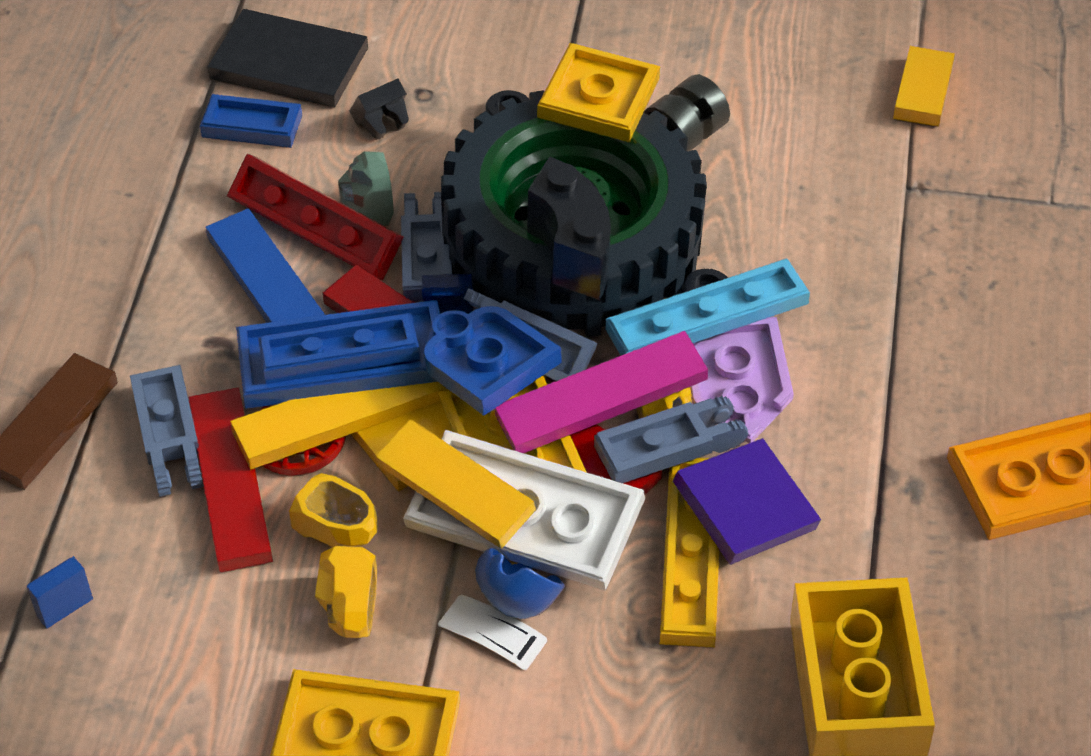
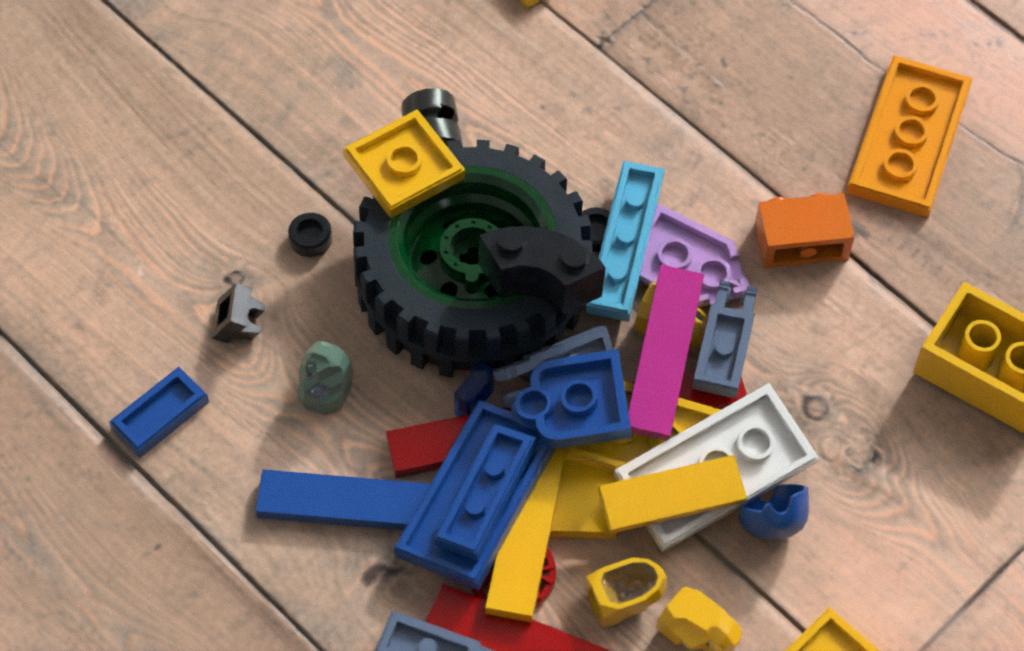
camera: 55 degrees left, 10 degrees up
(288, 57) = (112, 344): black tile -> none
(315, 216) = (311, 429): red tile -> none
(422, 246) = (413, 380): sand blue hinge -> none
(494, 630) = (785, 555): white sticker -> none
(688, 574) = (817, 393): yellow tile -> none
(746, 501) = (806, 330): dark purple tile -> none
(857, 437) = (804, 230): none -> orange brick

